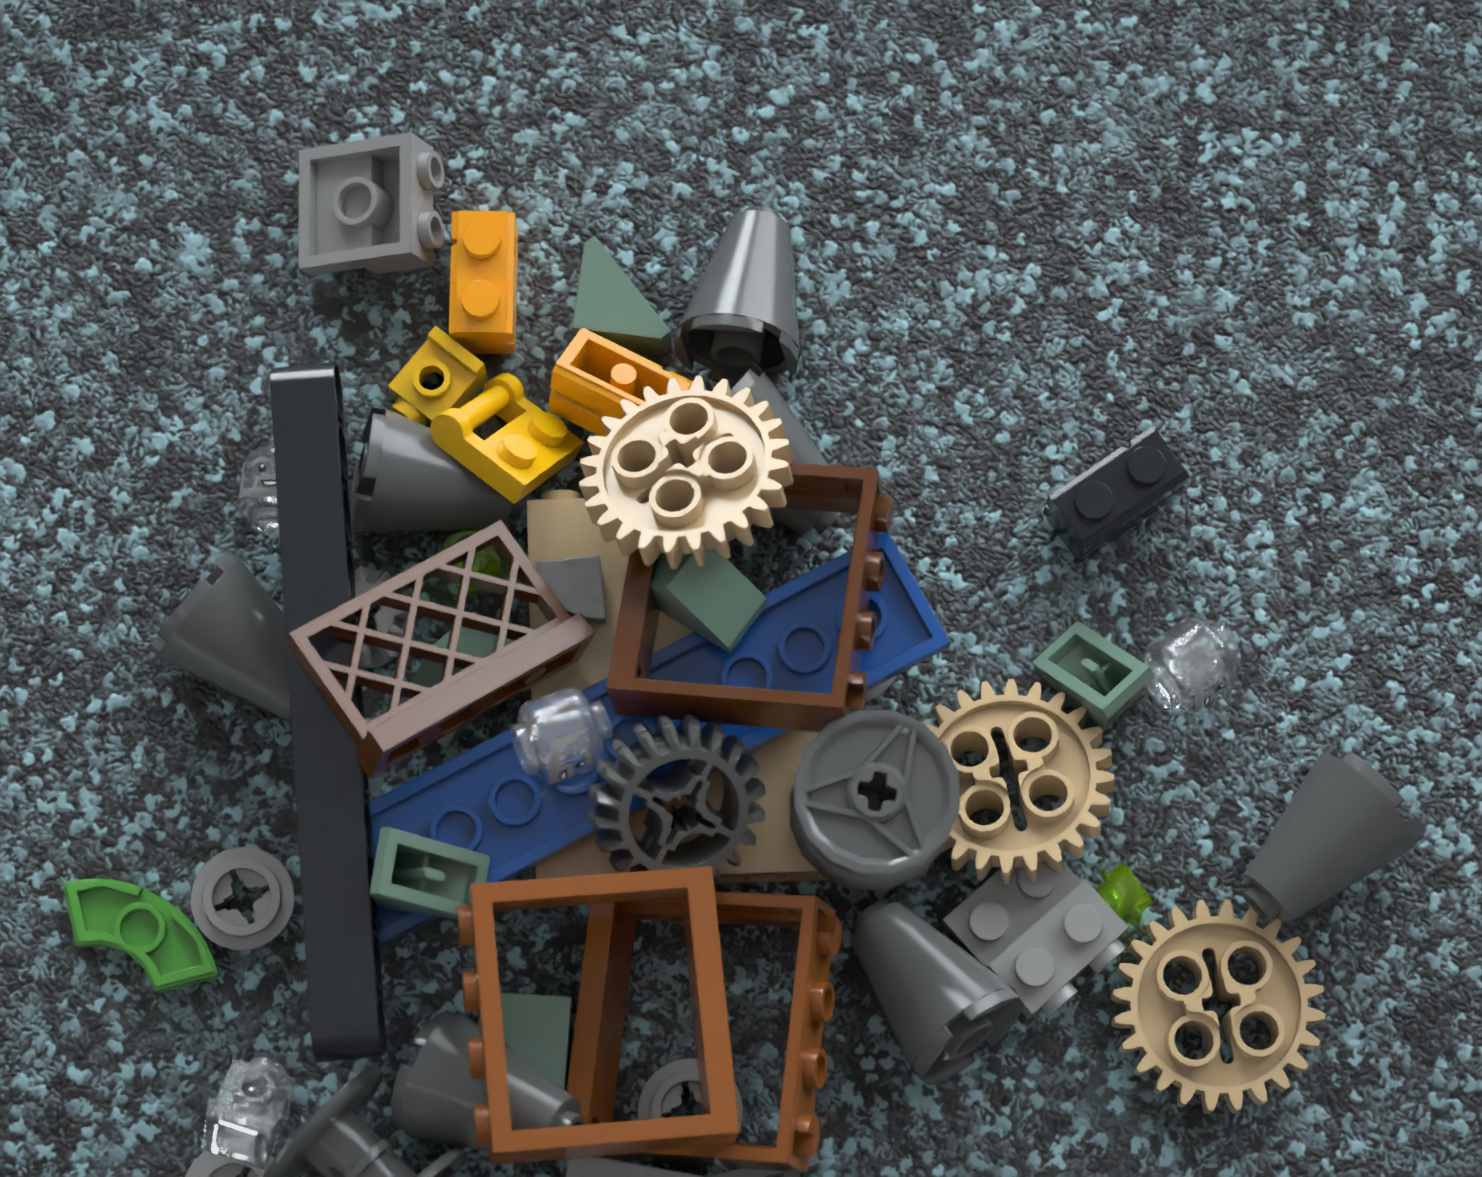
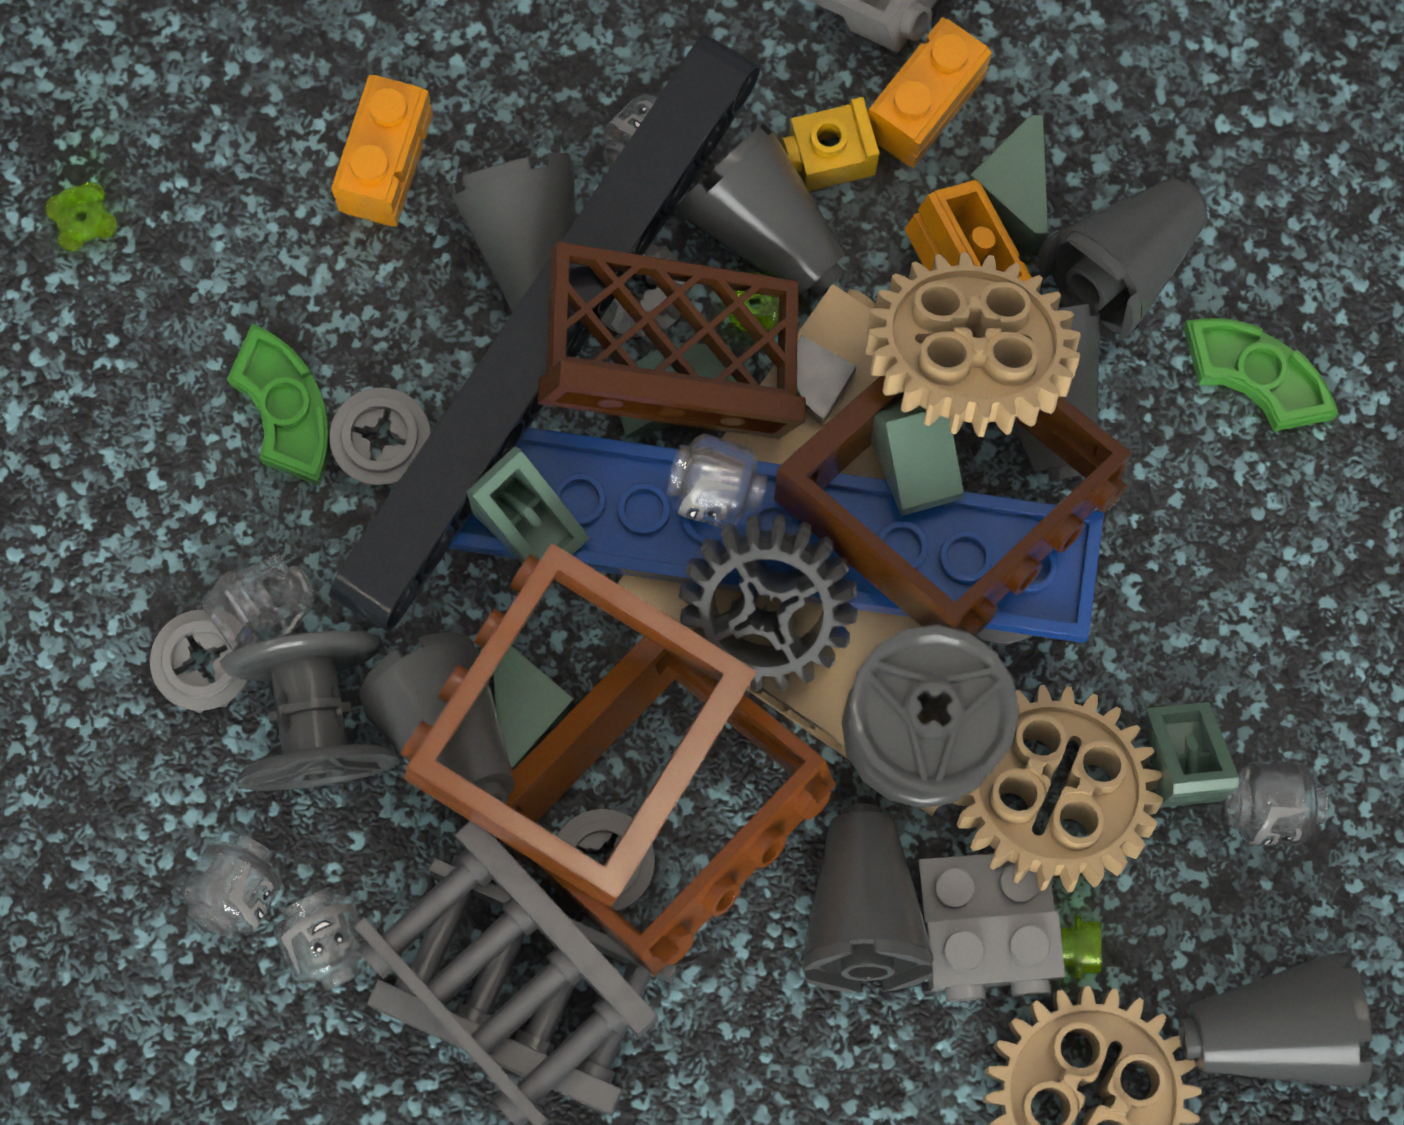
camera: 35 degrees right, 0 degrees up
(63, 657) = (382, 150): none -> light orange brick
(518, 454) = (848, 243): yellow plate -> none
(920, 316) = (1262, 368): none -> bright green tile
(1116, 494) = (1316, 622): black brick -> none

